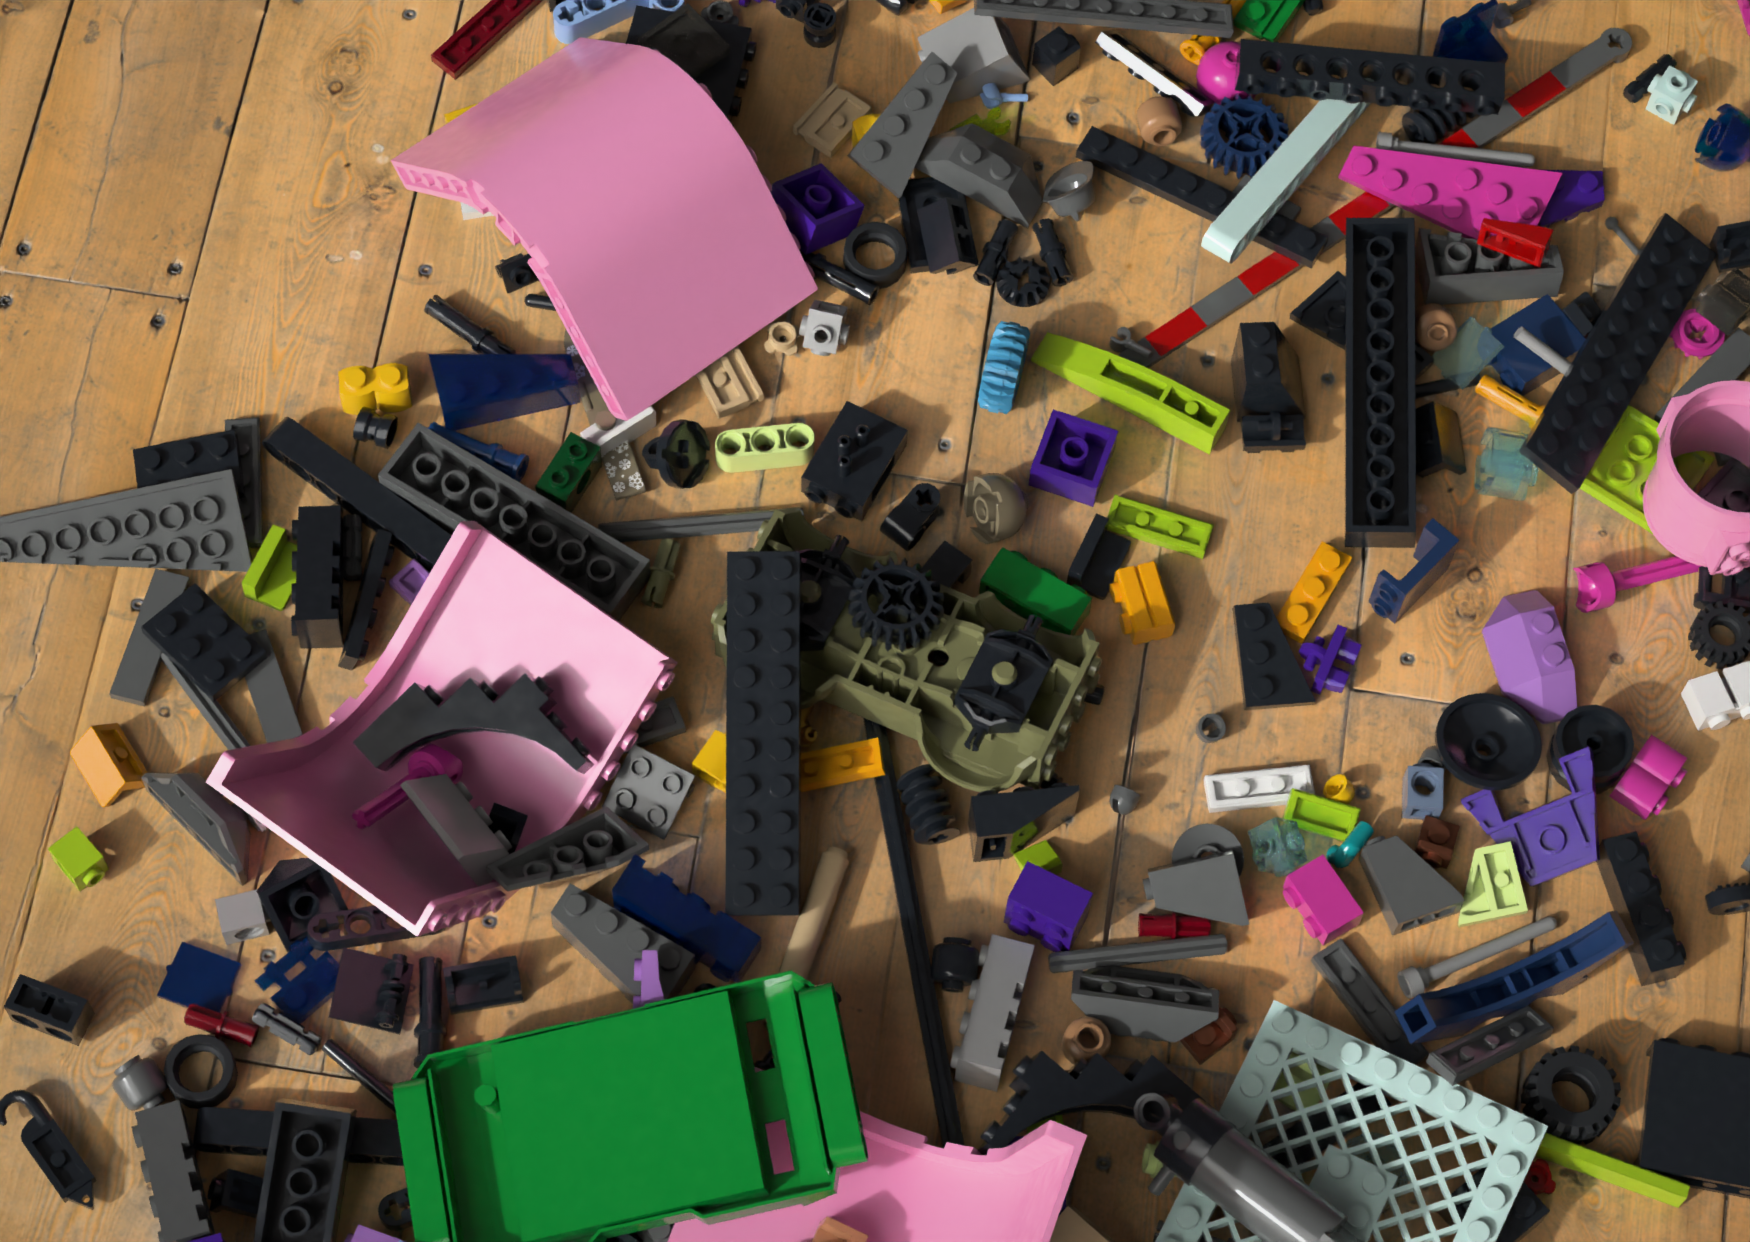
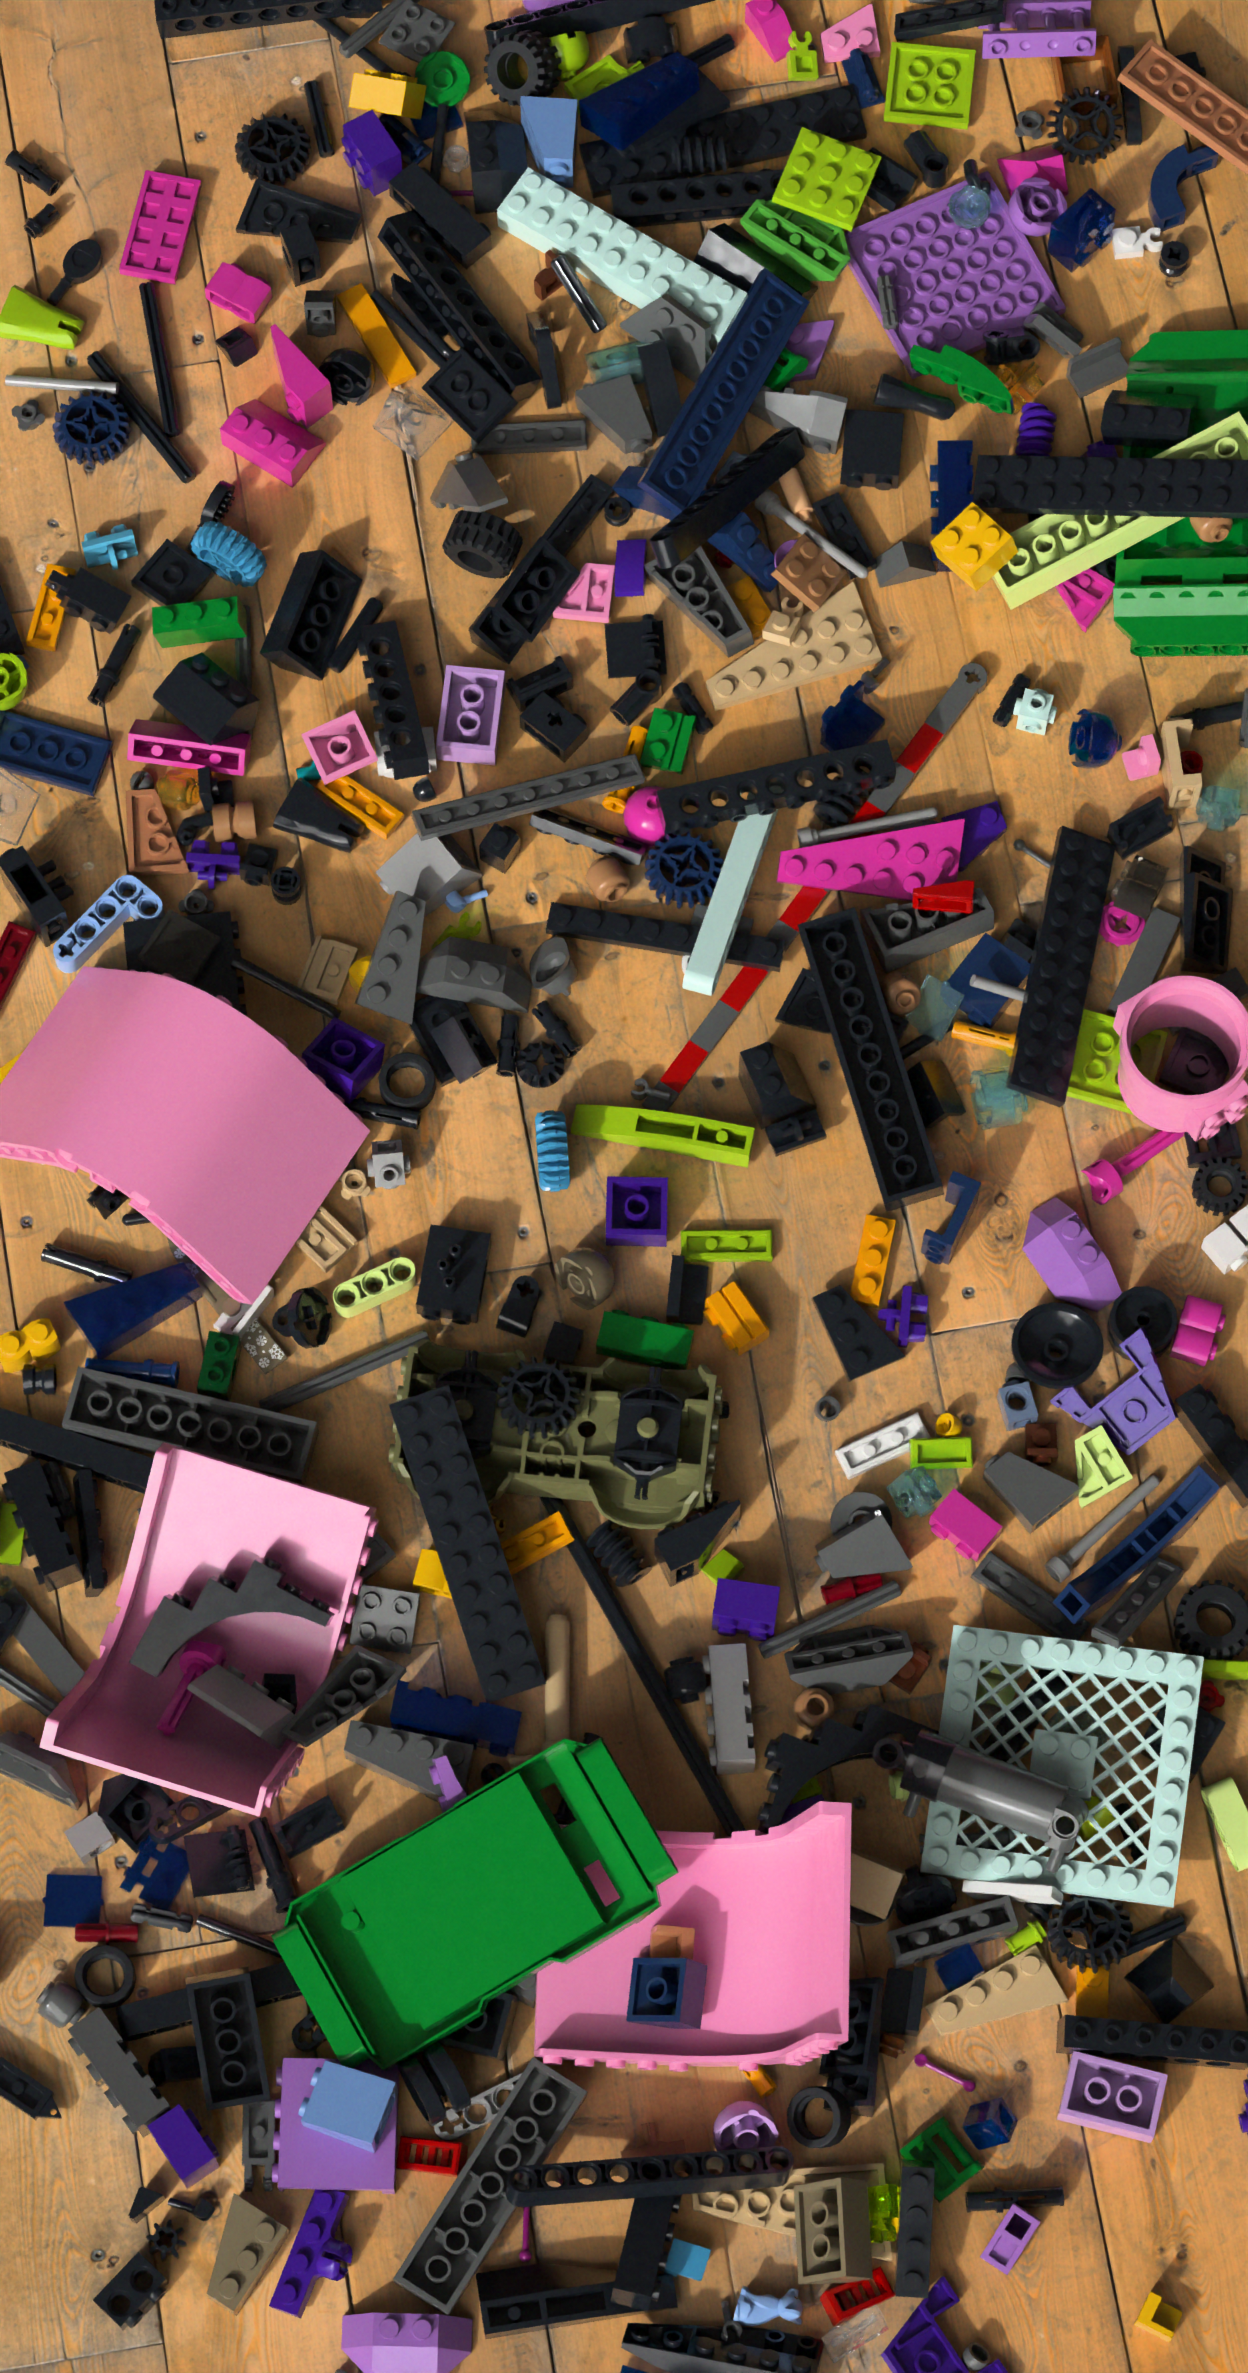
camera: 15 degrees left, 5 degrees up
(409, 580) = (122, 1504): medium lavender tile -> none
(661, 573) = (327, 1425): olive axle -> none
(780, 119) = (285, 987): none -> black bar
(1123, 800) = (775, 1494): dark grey hinge -> none
(1343, 855) = (974, 1471): teal arm -> none

